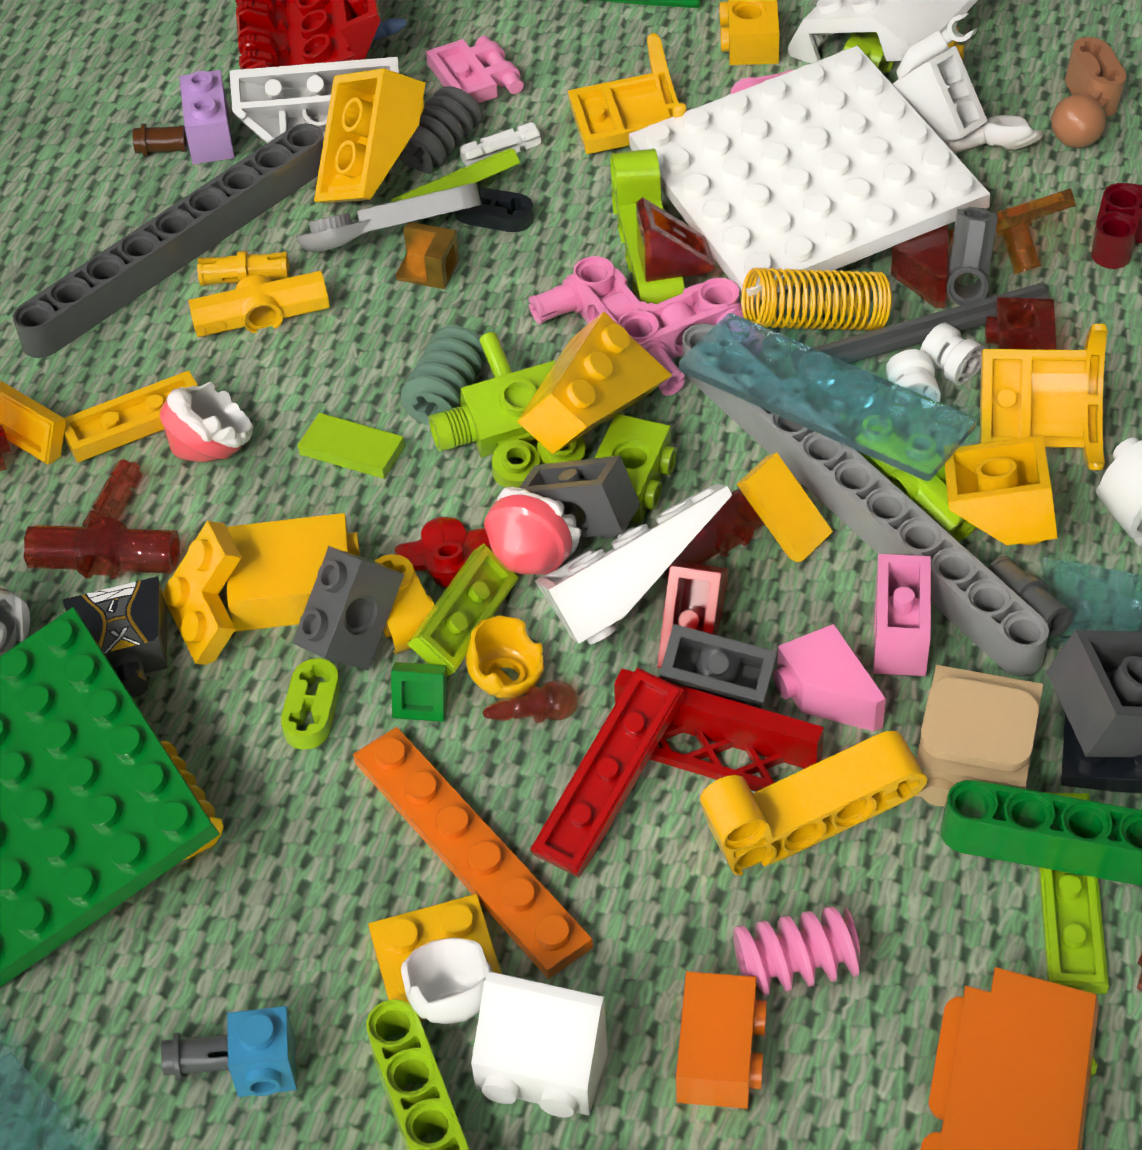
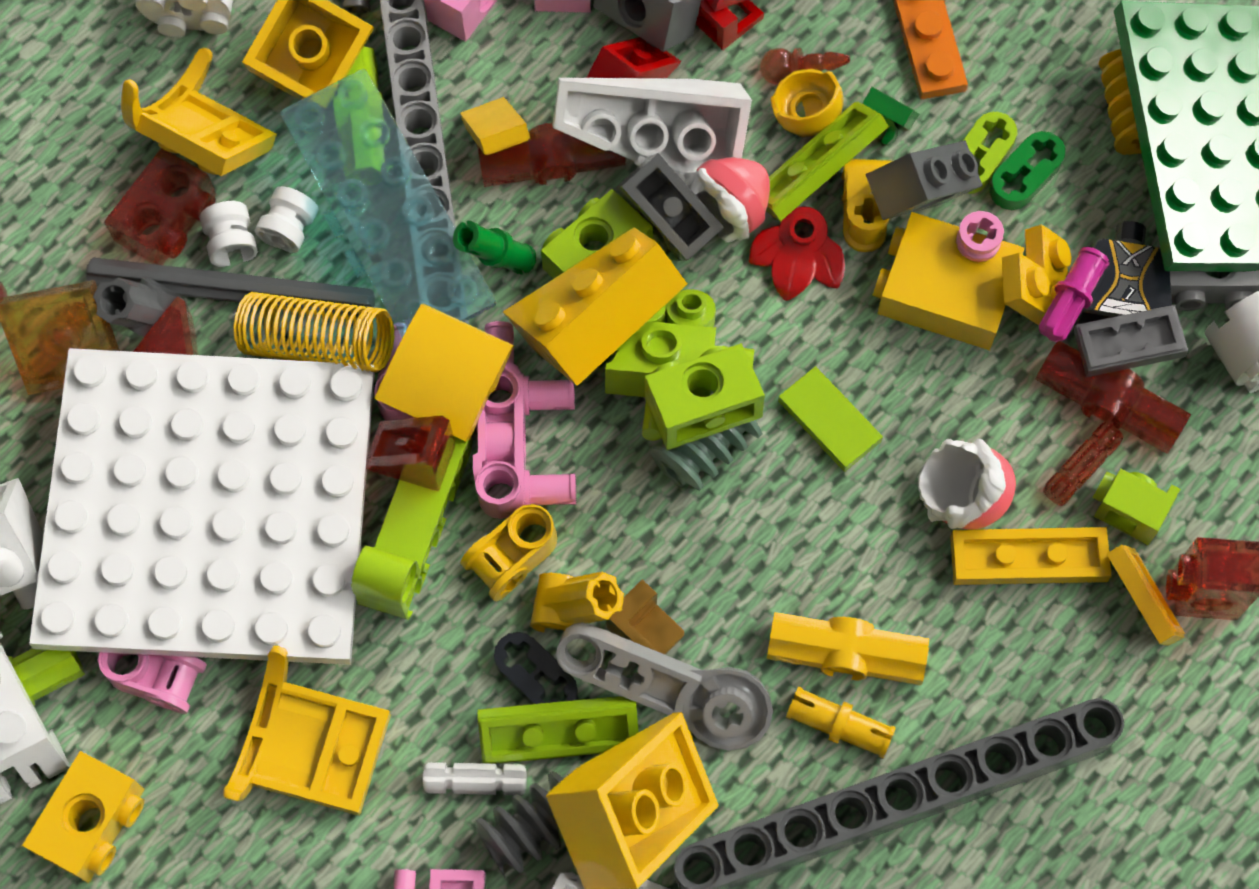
camera: 155 degrees left, 20 degrees up
(53, 476) = (1133, 504): none -> lime brick
(96, 561) = (1130, 340): none -> flat silver plate
(162, 570) = (1073, 294): none -> dark pink axle
(249, 701) = (1020, 163): none -> green beam
(260, 576) = (970, 225): none -> bright pink bush
(453, 348) = (686, 417): none -> lime brick
(487, 234) = (573, 600): none -> yellow piece
(557, 255) = (510, 553): none -> yellow piece
(683, 298) = (444, 370): none -> yellow slope
(711, 410) = (494, 247): none -> green pin

